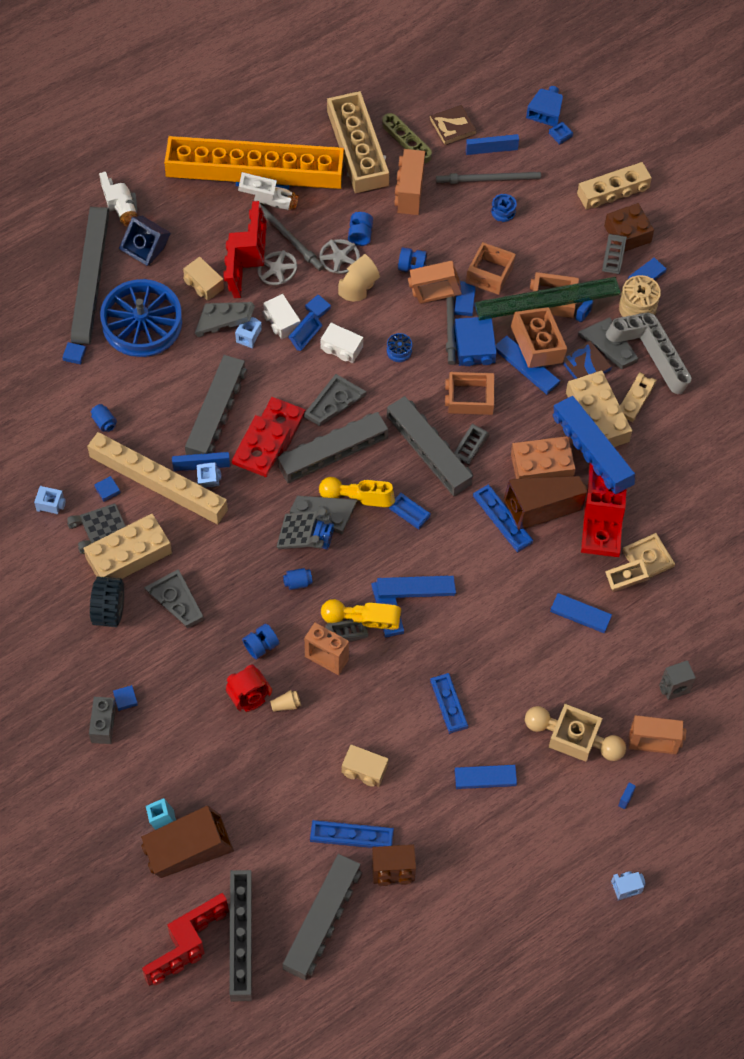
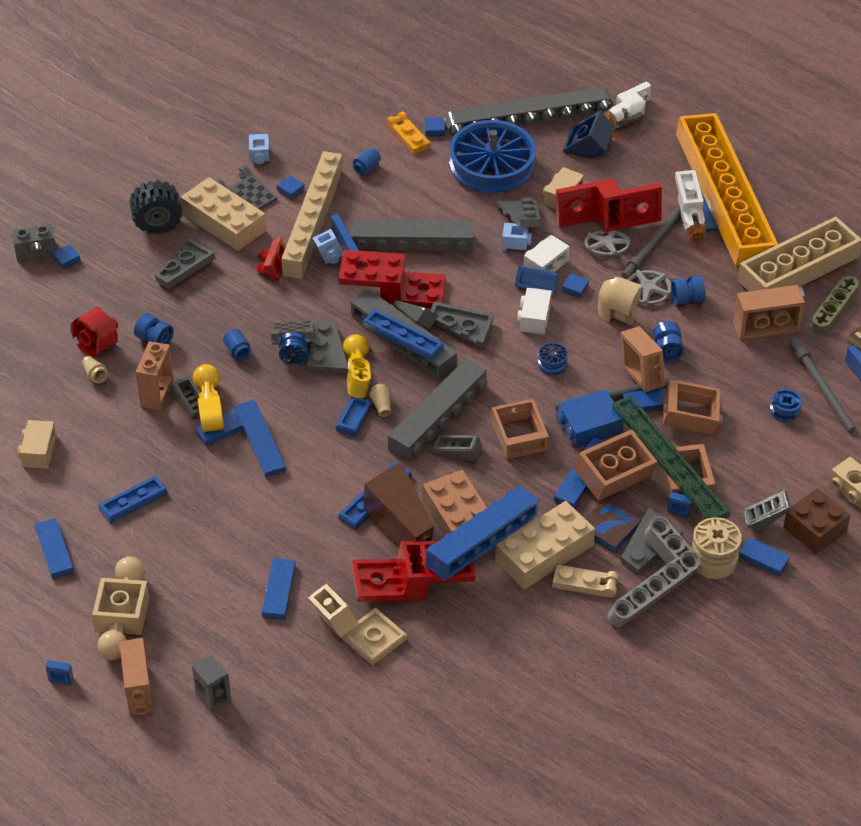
camera: 75 degrees right, 15 degrees down
(74, 376) = (408, 133): none -> light orange plate
(194, 521) = (273, 259): none -> red tile
(319, 428) = (418, 314): none -> dark grey slope
(345, 444) = (403, 334): none -> blue tile
(403, 484) = (381, 398): none -> tan cone

